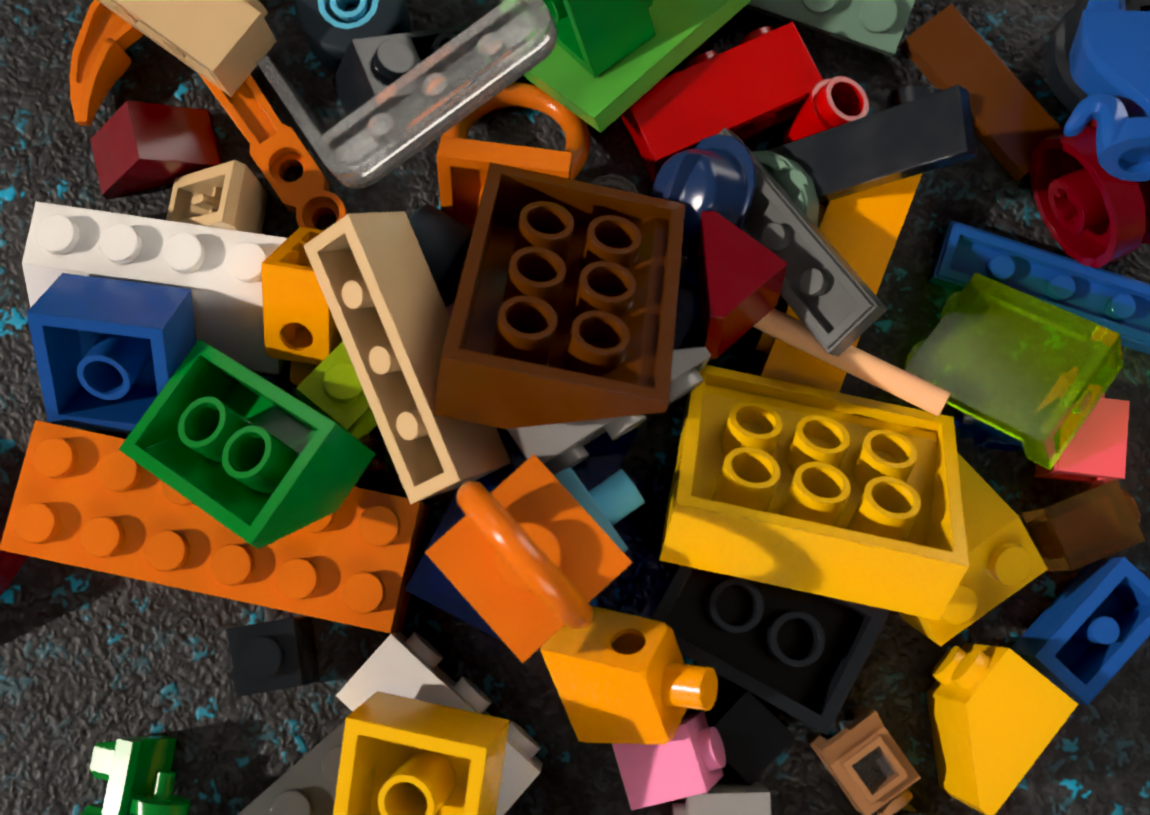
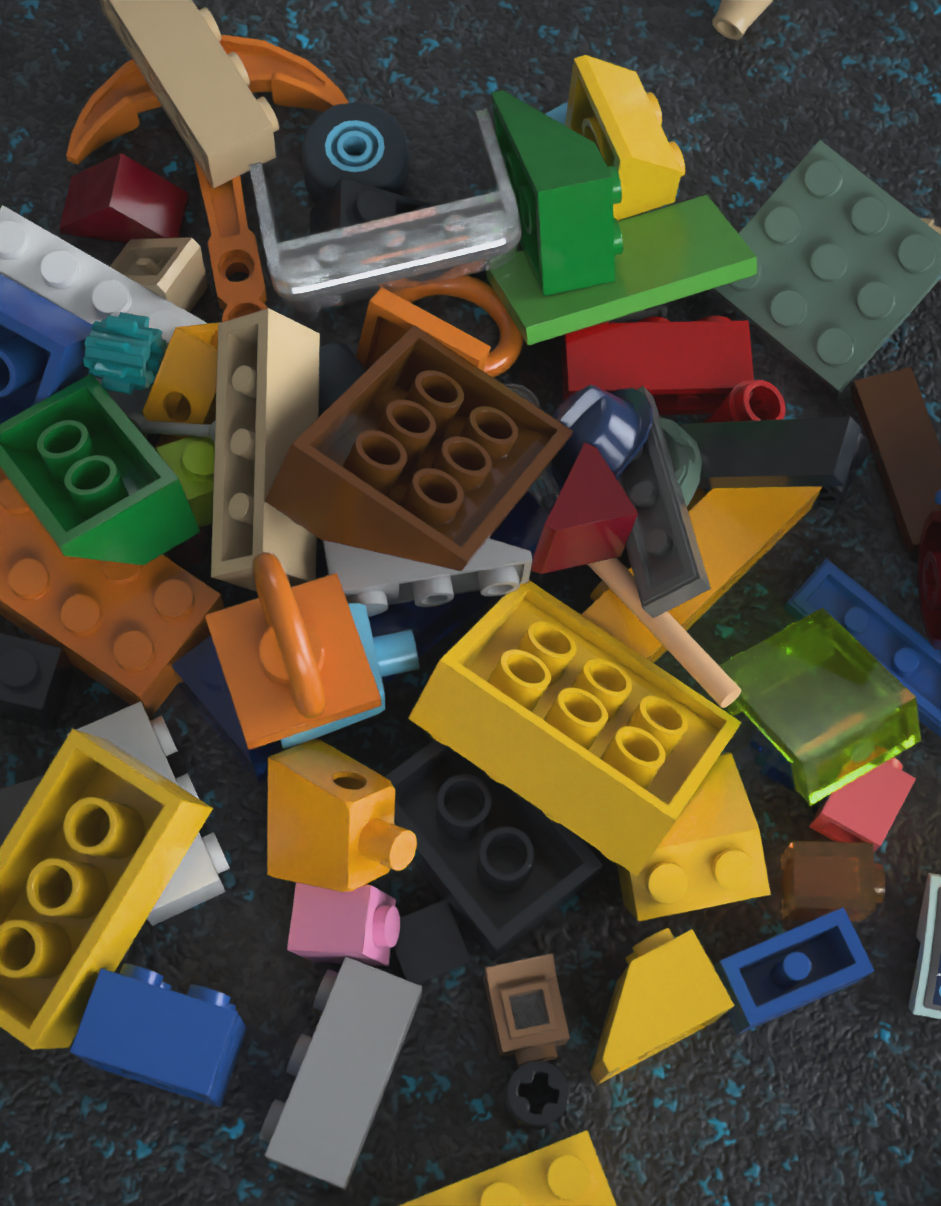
camera: 15 degrees right, 10 degrees down
(221, 305) = (124, 352): none -> teal gear
(268, 367) = (172, 428): none -> light grey hinge

